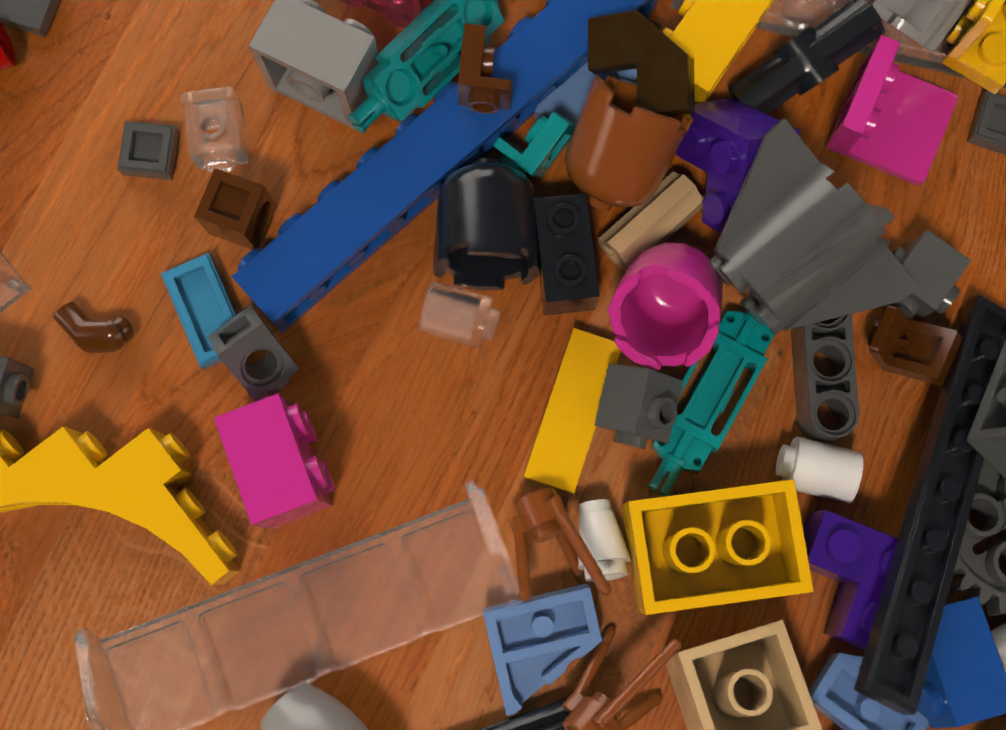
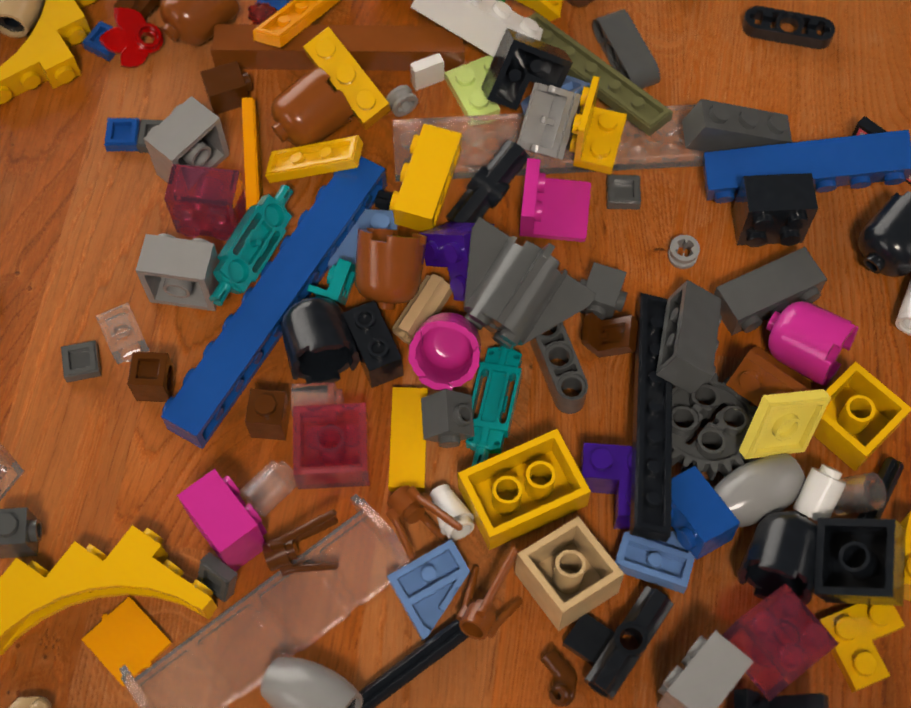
camera: 15 degrees left, 15 degrees down
(93, 335) = (77, 484): reddish brown arm -> none
(104, 580) = (126, 638): none -> light orange piece
(200, 304) = (148, 449): dark azure tile -> none
(239, 339) = (177, 451): dark grey brick -> none
(249, 540) = (217, 576): none -> dark grey tile
(351, 525) = (283, 550): none -> reddish brown plant
(356, 425) = (269, 487): none -> clear brick
(384, 315) = (268, 414): none -> reddish brown brick
(459, 393) = (331, 446): none -> clear pink brick
(475, 80) = (287, 256): reddish brown bracket -> none
(634, 42) = (376, 203): dark brown tile -> none
(821, 469) = (577, 424): white brick -> none

